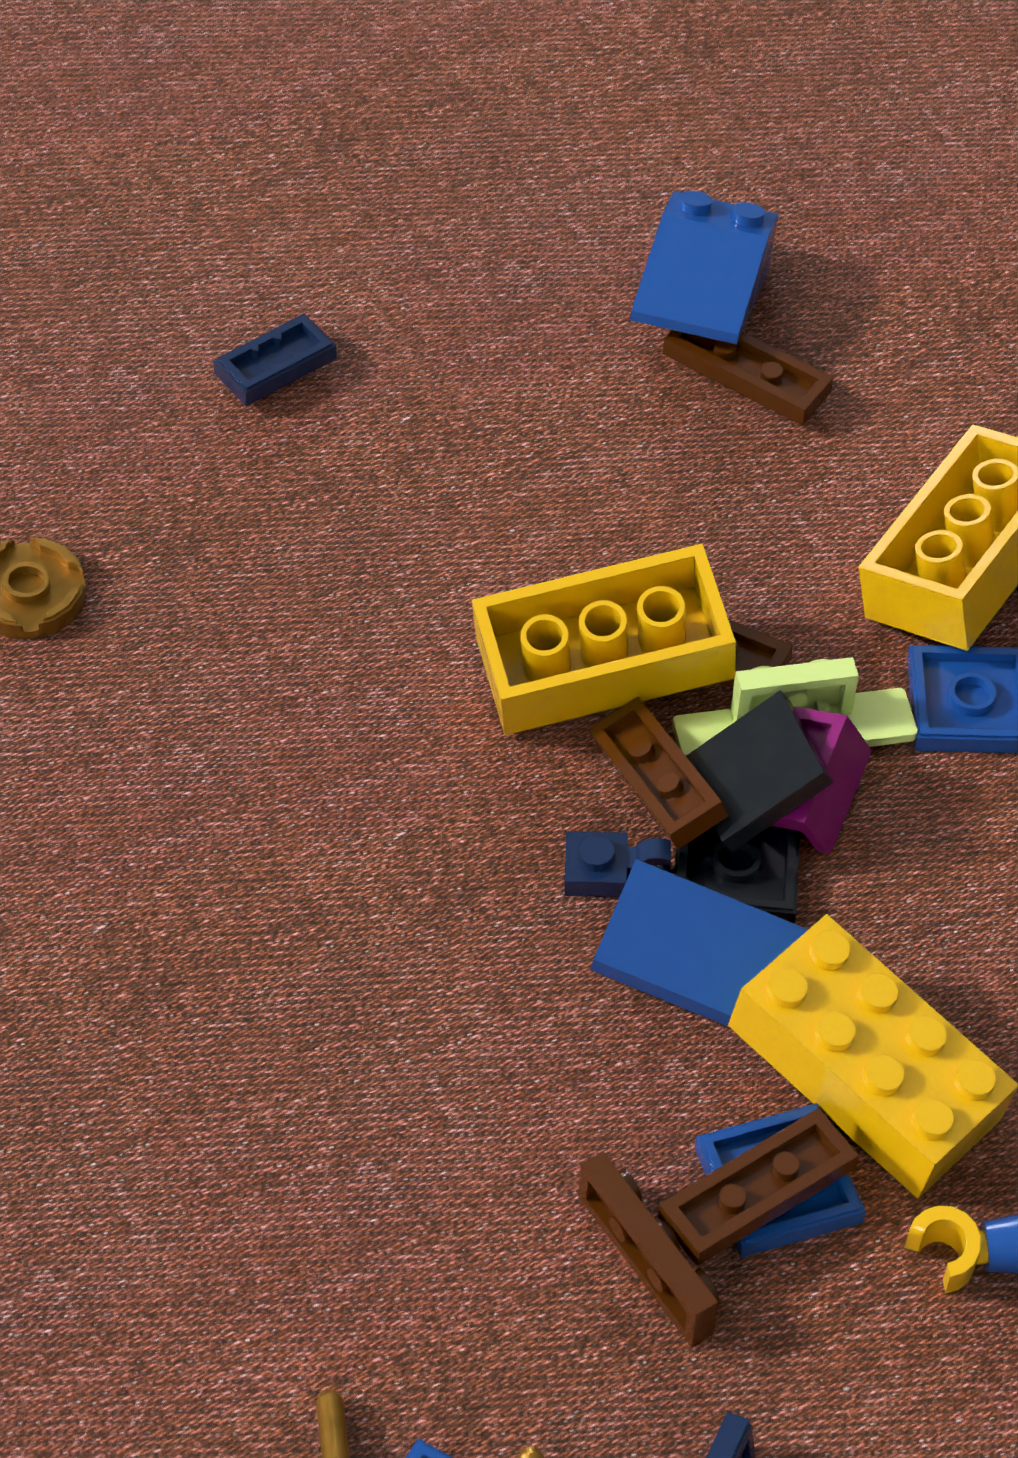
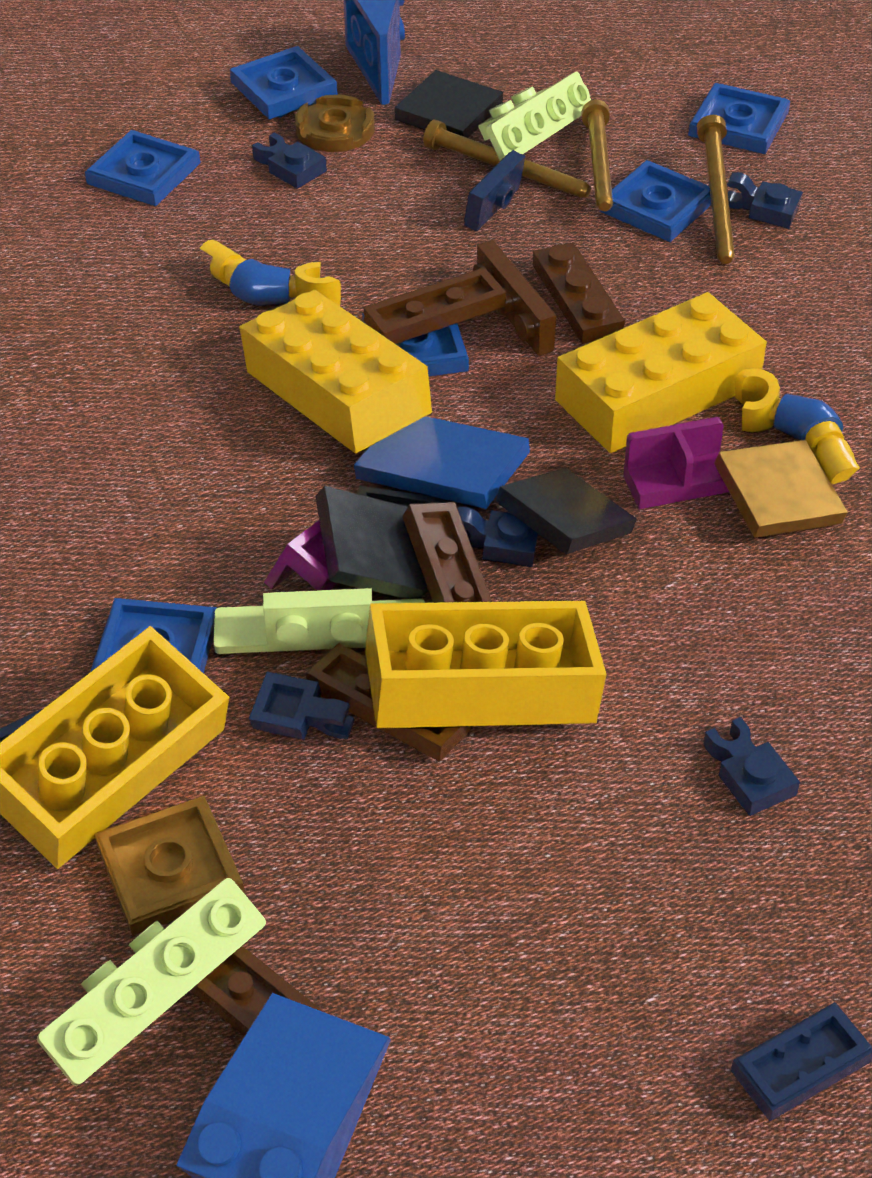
camera: 170 degrees left, 5 degrees down
(235, 1058) = (797, 417): none -> yellow piece
(267, 943) = (780, 488): none -> tile
(312, 609) = (750, 772): none -> dark blue plate
(397, 970) = (674, 463): none -> magenta panel
(425, 1112) = (657, 370): none -> yellow brick
(534, 882) = (565, 510): none -> black tile
(556, 1301) = (577, 292): none -> reddish brown plate
(795, 620) = (293, 704): none -> dark blue plate
(854, 361) = (159, 973): none -> yellowish green bracket
(865, 482) = (165, 862): none -> pearl gold tile

